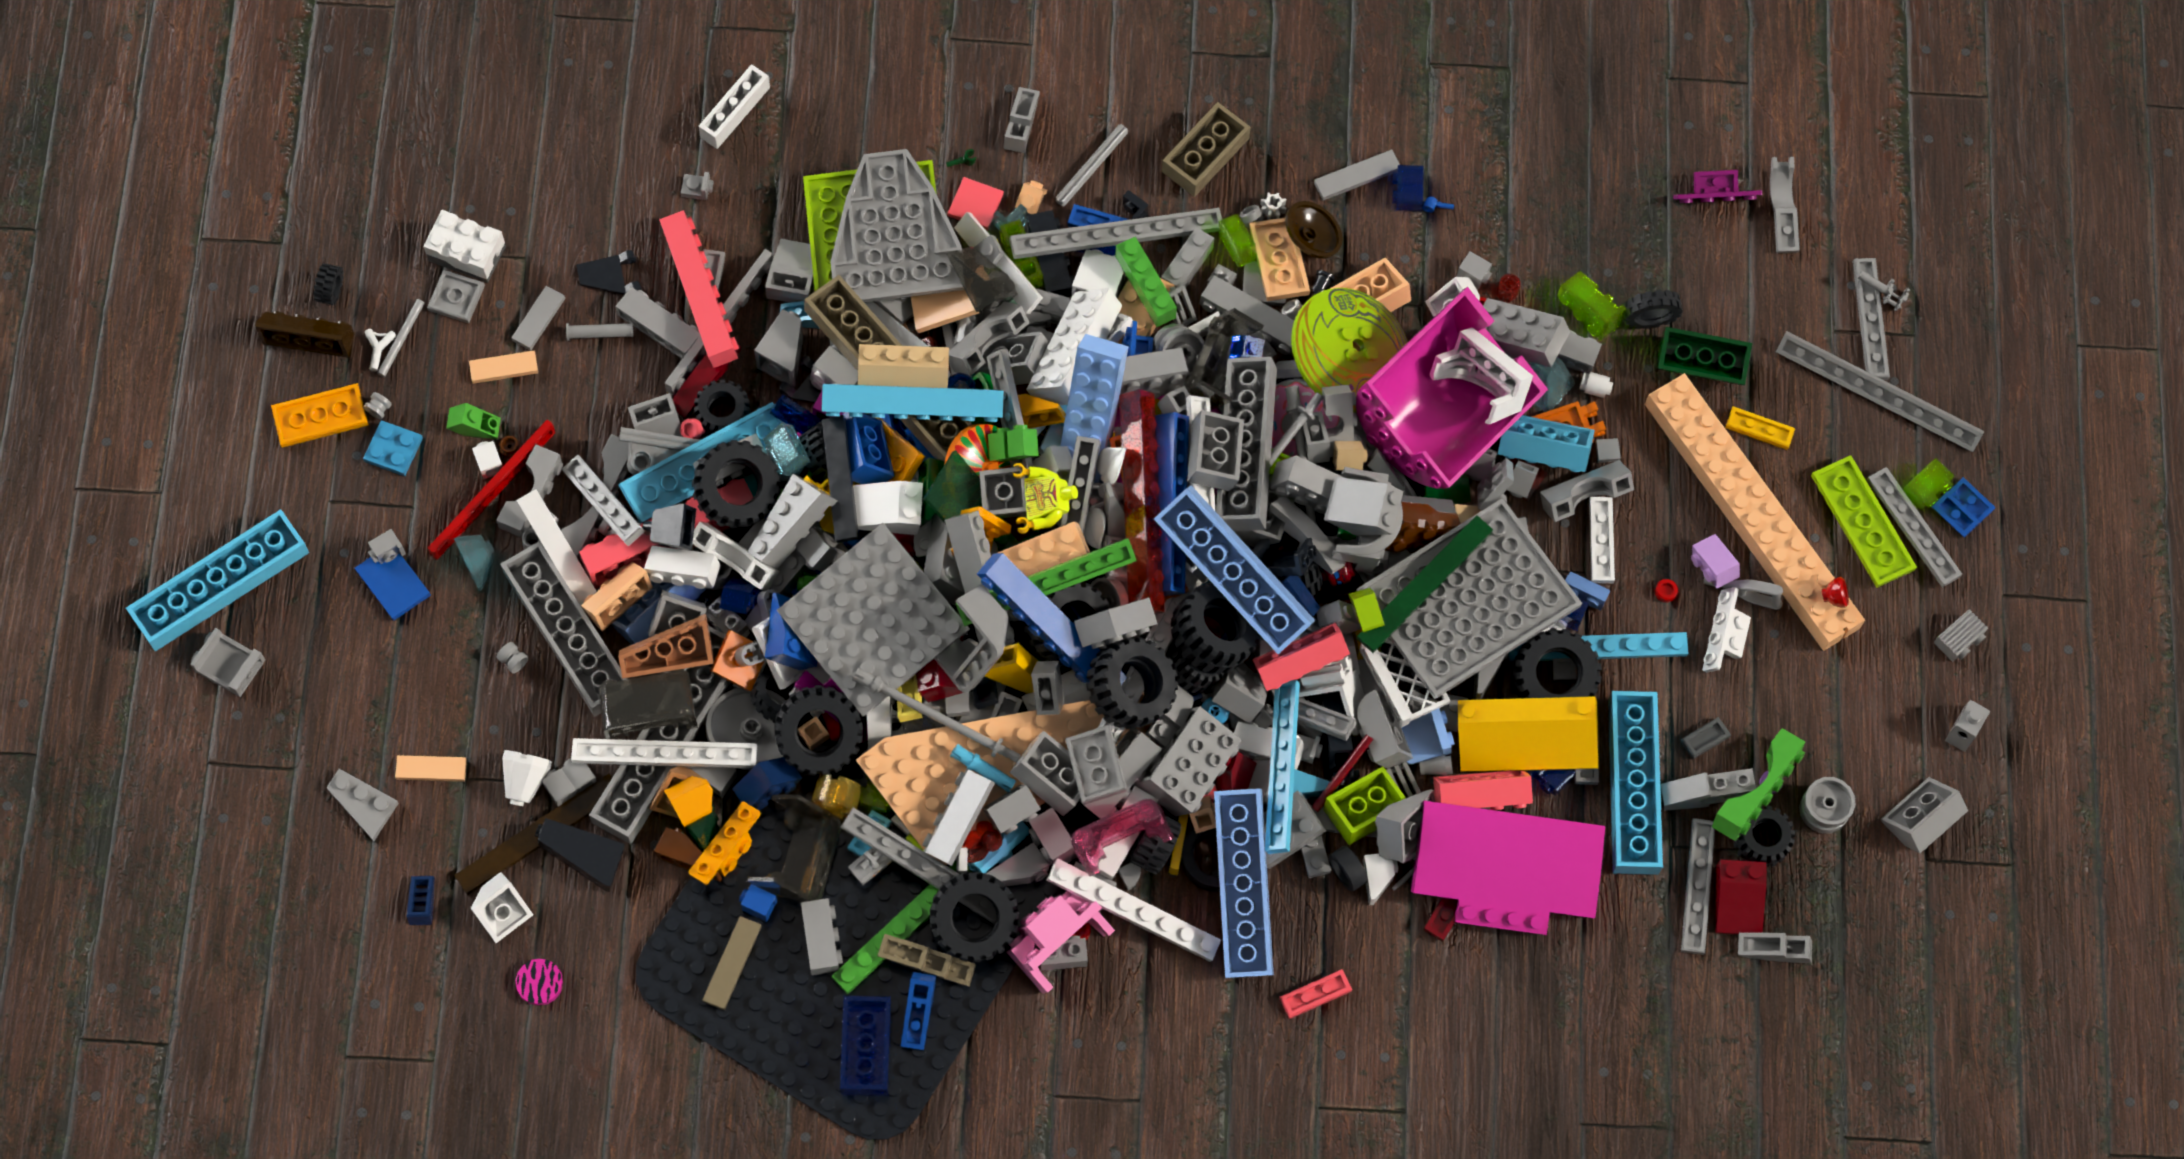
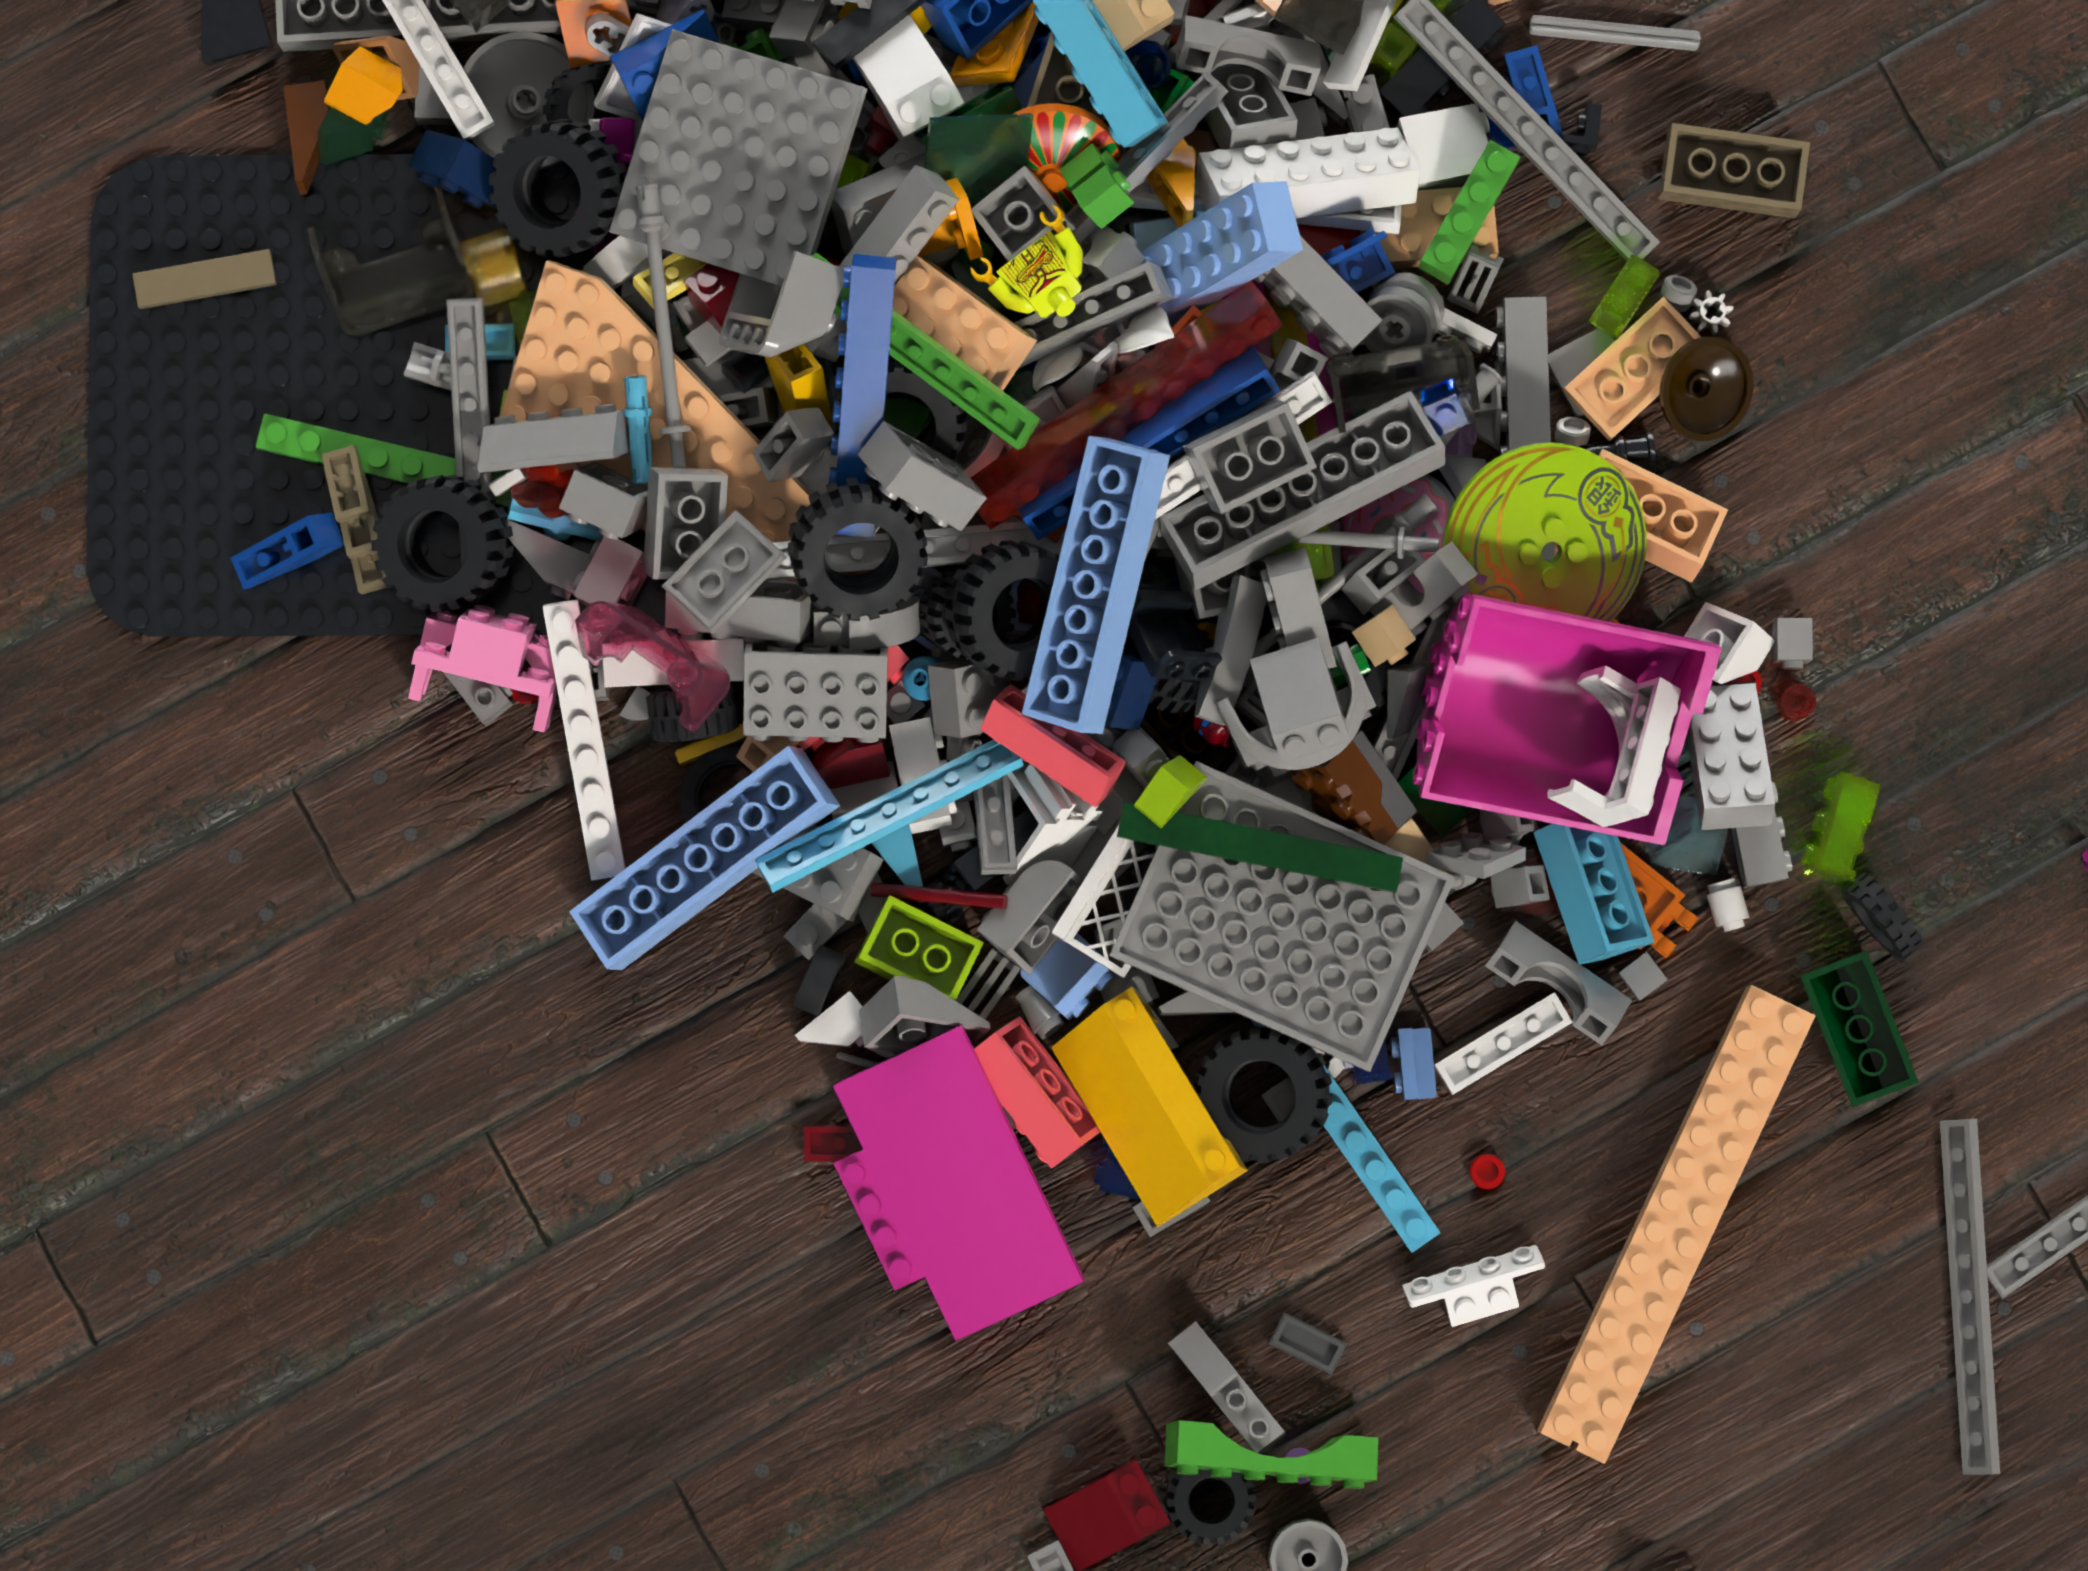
camera: 60 degrees right, 15 degrees up
(539, 982) = (35, 57): dark pink tile -> none
(727, 845) = (343, 172): light orange bracket -> none
(758, 902) = (298, 260): blue brick -> none
(813, 733) = (564, 185): light nougat slope -> none
(821, 936) = (305, 367): light grey brick -> none
(865, 1045) = (196, 514): clear blue brick -> none
(1189, 258) = (1550, 249): light grey brick -> none
(1224, 274) = (1561, 309): light grey tile -> none
(1315, 994) = (632, 1039): coral tile -> none
(1356, 175) = (1836, 397): light grey tile -> none
(1408, 187) = (1859, 479): clear blue brick -> none
(1431, 202) = (1858, 522): blue hand -> none
(1635, 782) = (1178, 1285): medium azure brick -> none
(1698, 887) = (1089, 1451): light grey tile -> none
(1715, 561) = (1565, 1213): lavender brick -> none
(1748, 592) = (1554, 1284): light grey piece -> none
(1760, 428) = (1810, 1163): yellow tile -> none
(1836, 593) = (1612, 1405): red brick -> none
(1863, 521) = (1759, 1381): lime plate -> none
(1914, 527) = (1795, 1455): light grey plate -> none
(1928, 484) = (1872, 1440): clear neon green brick -> none
(1963, 507) = (1870, 1506): blue slope -> none

